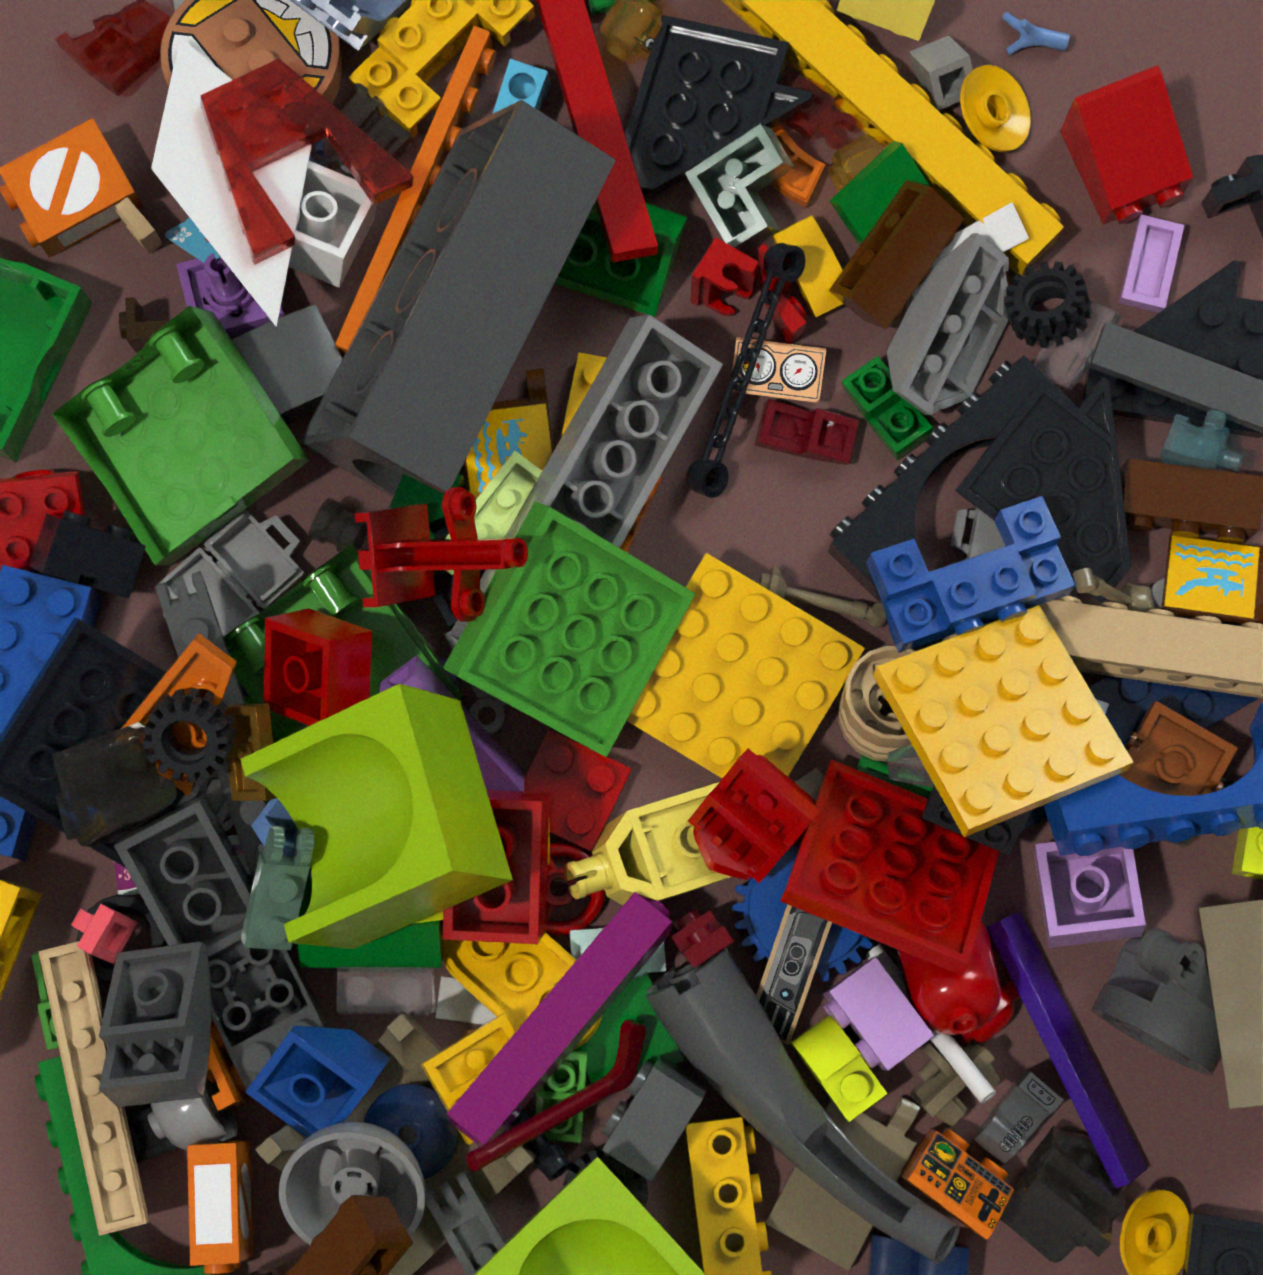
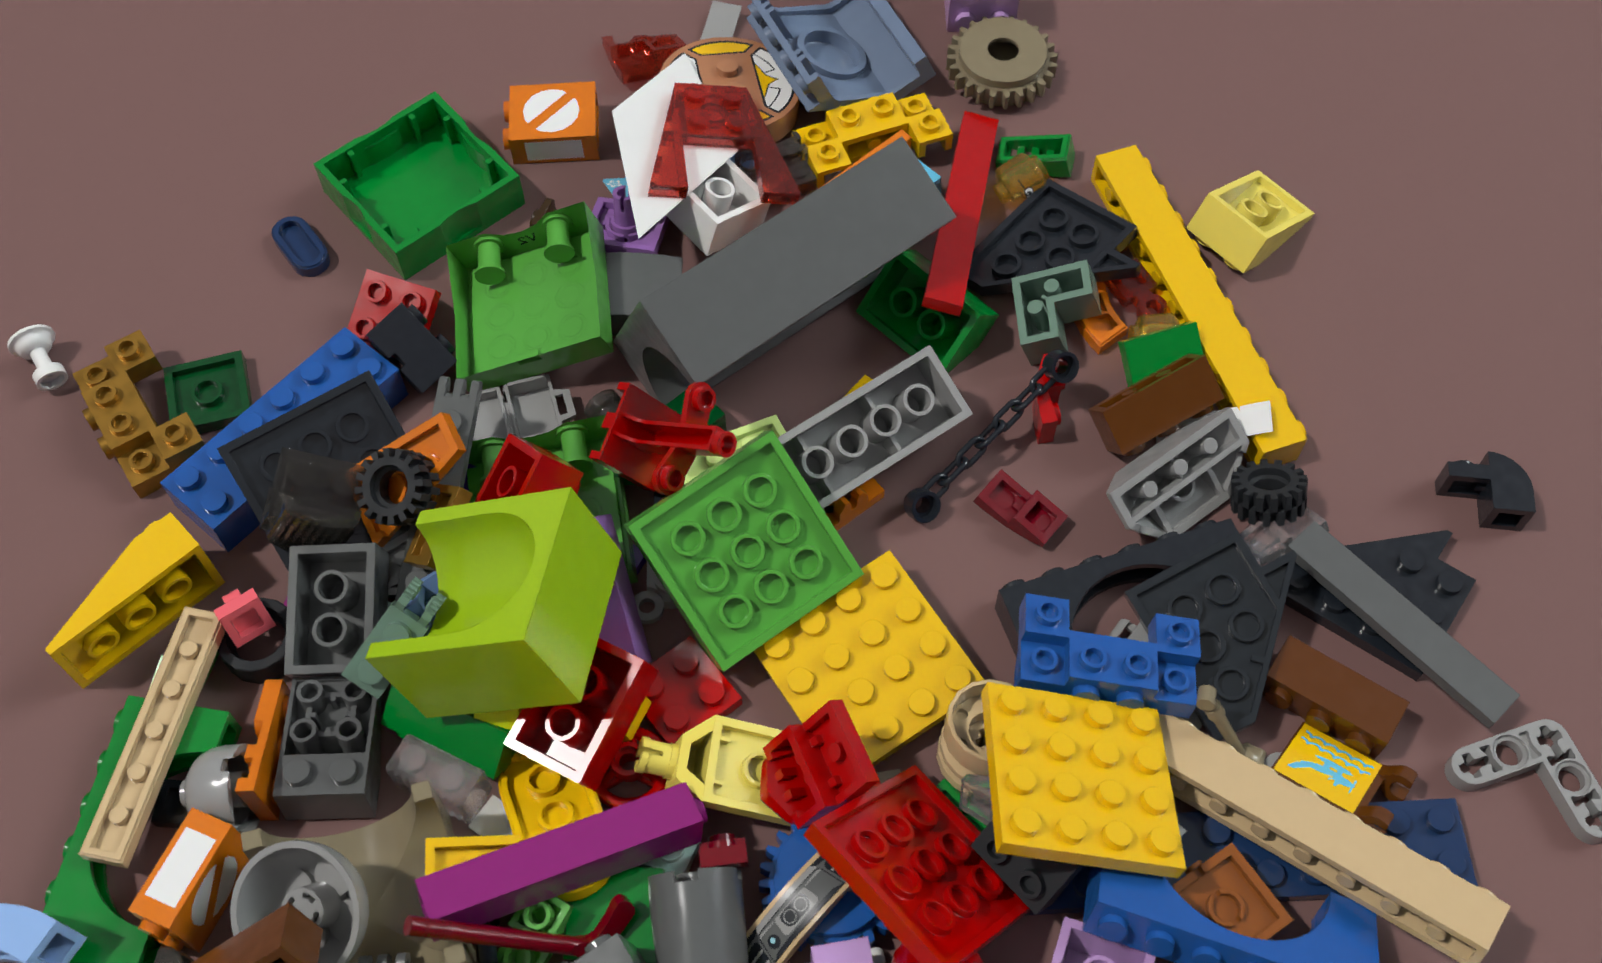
camera: 25 degrees right, 20 degrees down
(138, 225) = (586, 163): tan tile -> none
(157, 1026) = (232, 704): dark grey slope -> none
(317, 1077) = (335, 803): blue slope -> none
(424, 1112) = (397, 876): dark blue dish -> none
(511, 427) = (768, 397): yellow flag -> none
(723, 270) = (1005, 359): red hinge -> none
(785, 371) = (1024, 453): slope -> none
(820, 265) = (1083, 393): yellow slope -> none
(857, 610) = (996, 659): dark tan piece -> none
(889, 415) = (1095, 517): green slope -> none
(941, 70) = (1255, 302): light grey brick -> none
(995, 108) = (1285, 340): yellow dish -> none
(1034, 35) = (1340, 307): medium blue bar -> none
(1128, 146) = (1387, 404): red slope -> none
(1151, 263) = (1372, 505): lavender tile -> none
(1200, 446) = (1361, 651): clear light blue piece -> none

